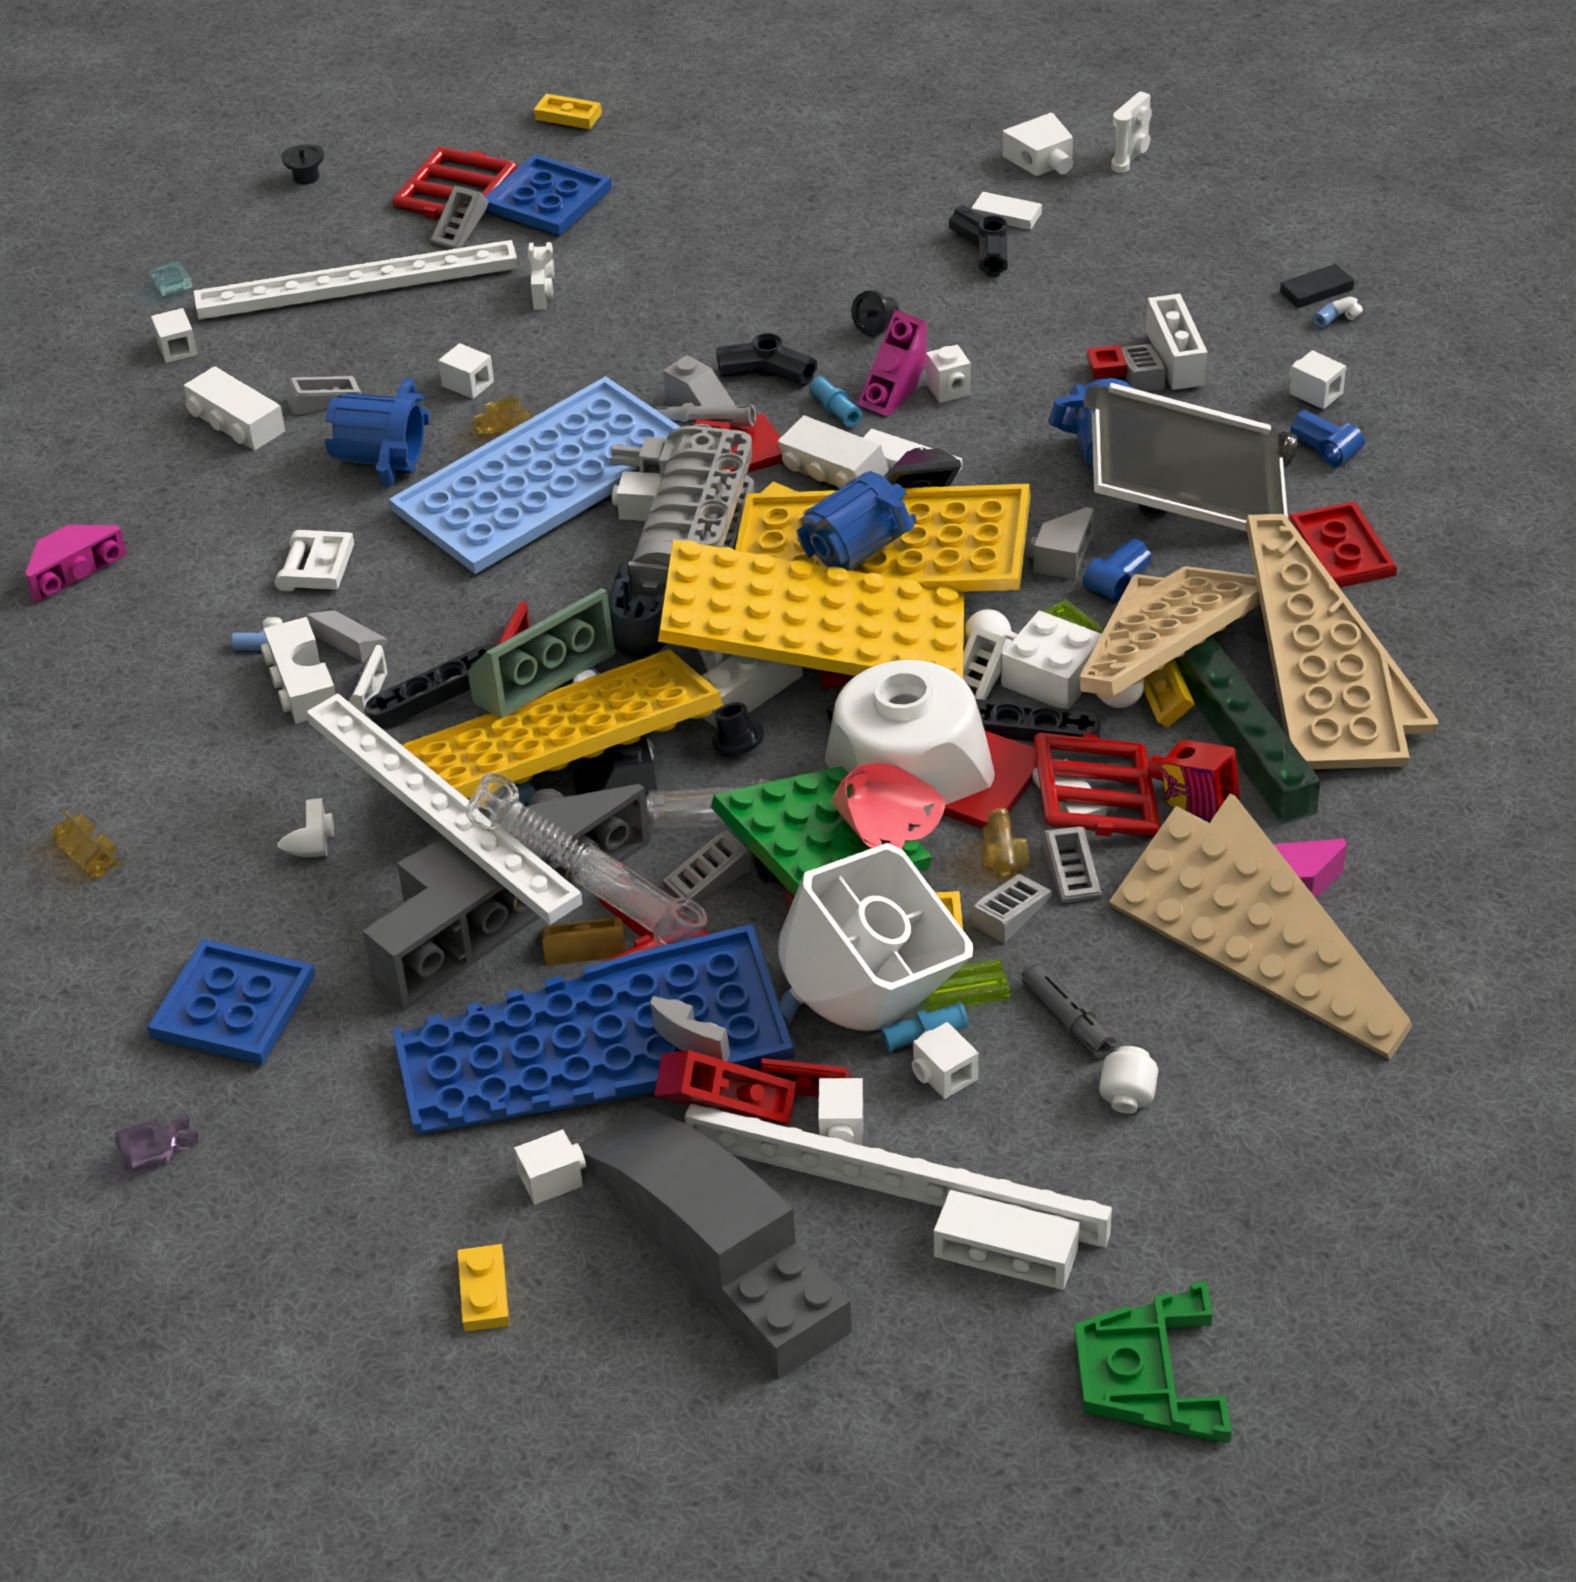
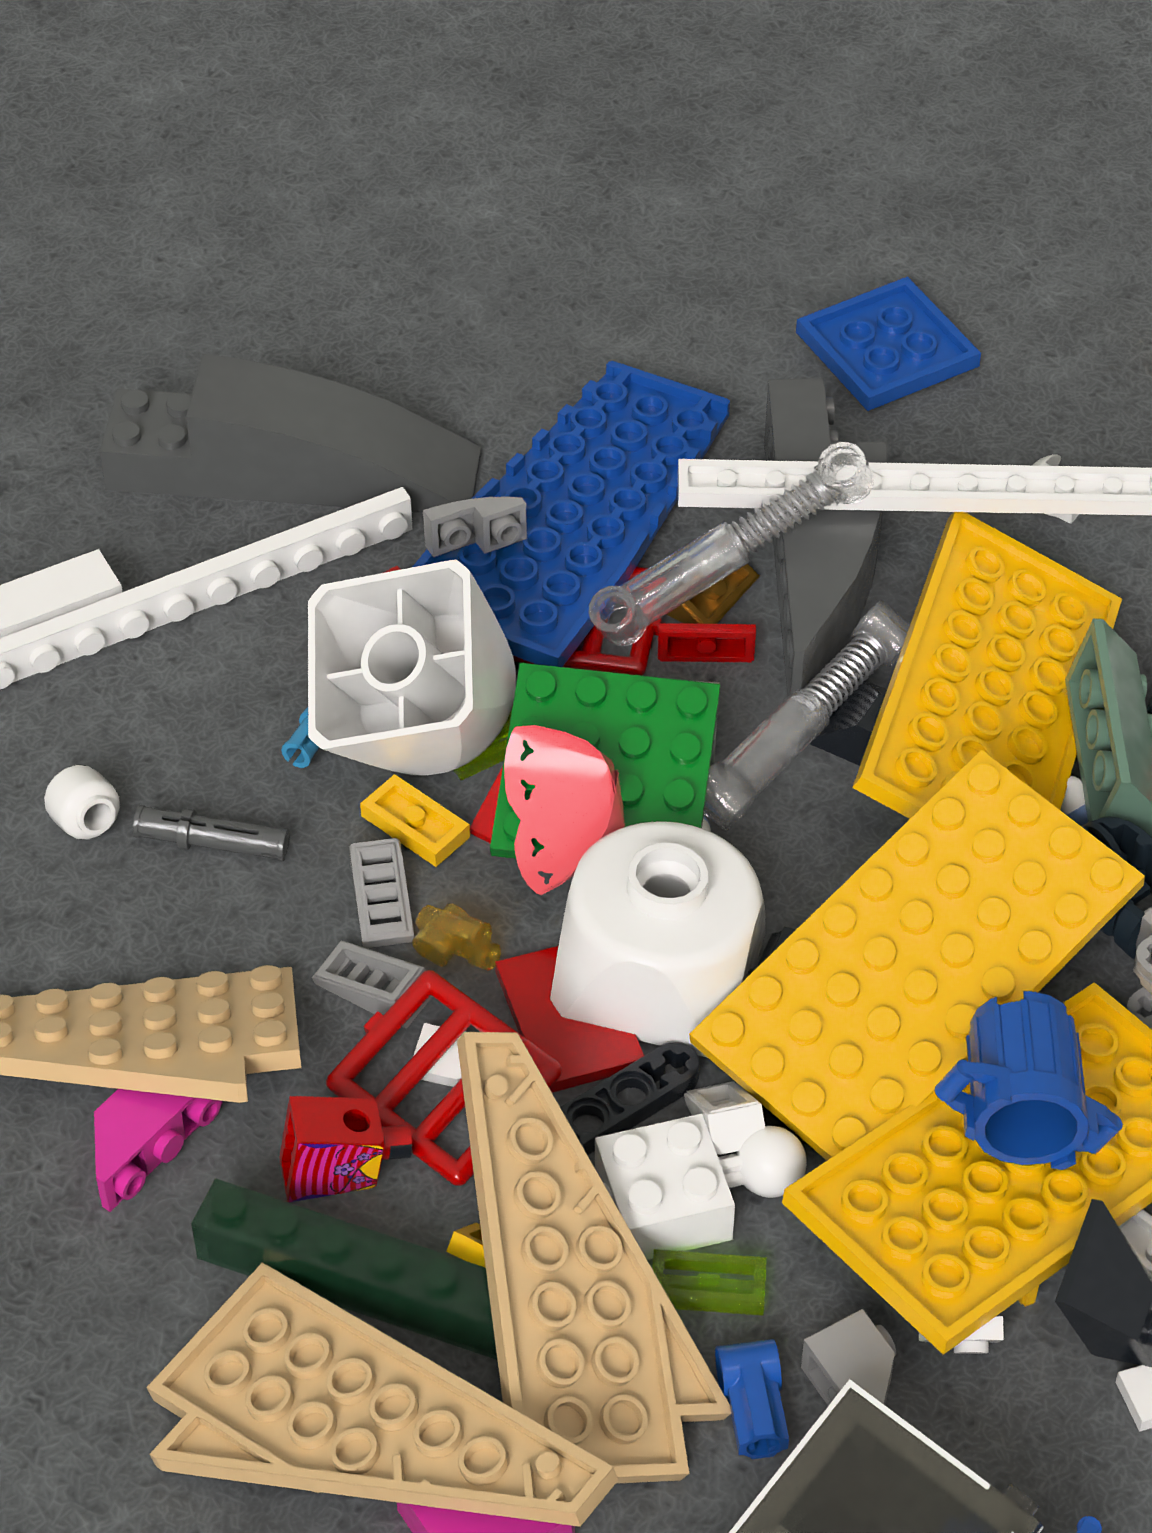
camera: 130 degrees right, 5 degrees up
(151, 1145) = (774, 229): clear purple plate -> none
(483, 1288) = (409, 325): yellow plate -> none
(550, 1166) = (470, 405): white brick -> none
(732, 1088) = (397, 523): red slope -> none
(735, 730) = (852, 848): black piece -> none
(841, 1109) = (286, 599): white brick -> none
(945, 1060) = (263, 703): white brick -> none
(965, 979) = (296, 812): clear neon green tile -> none

